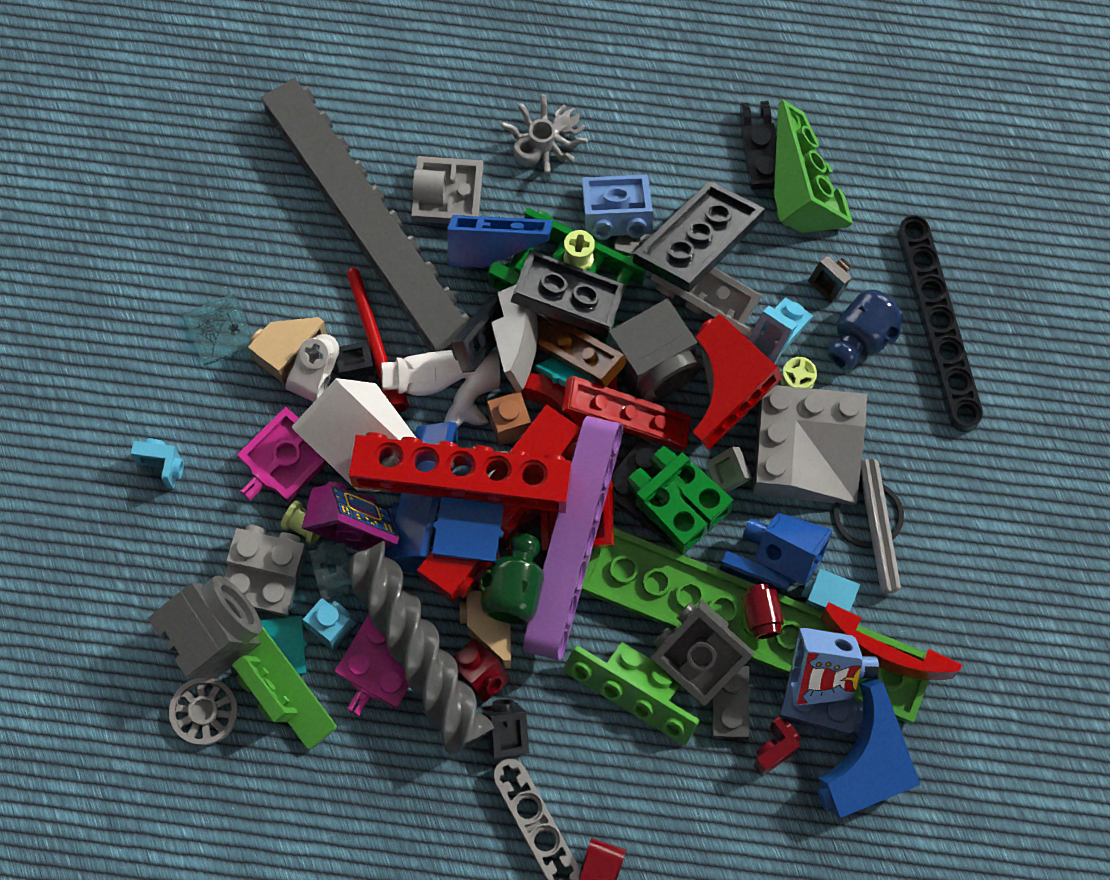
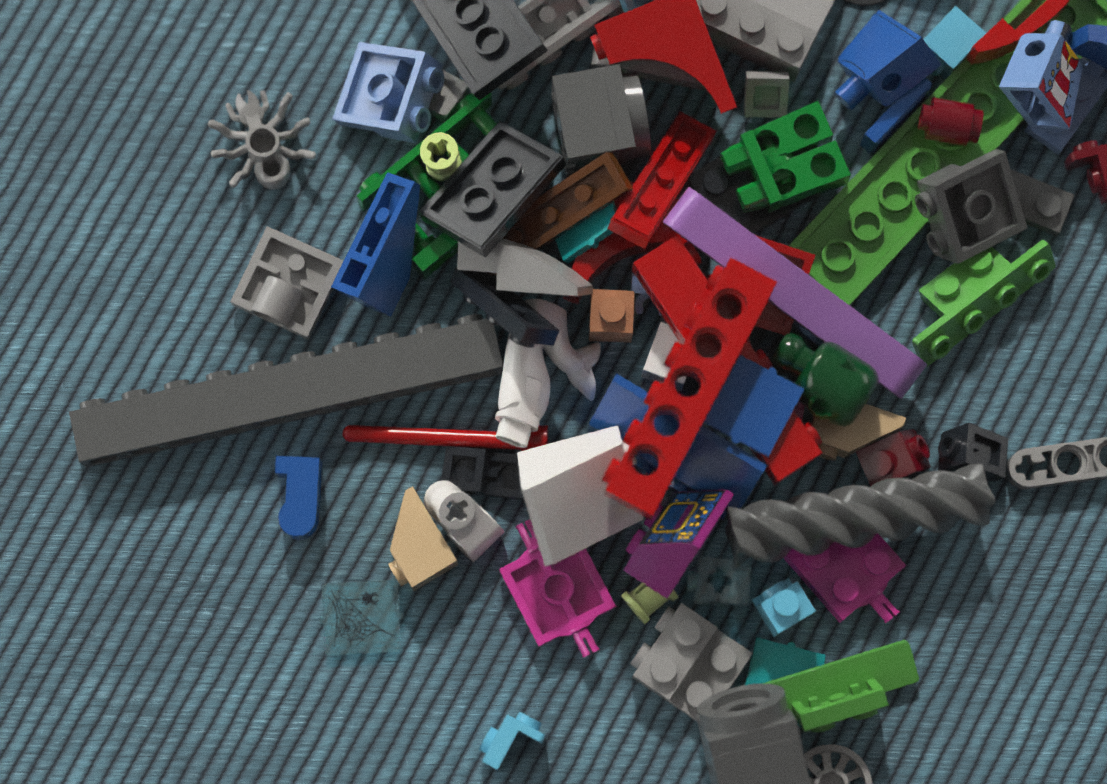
camera: 70 degrees left, 10 degrees up
(293, 254) = (303, 492): none -> blue leg

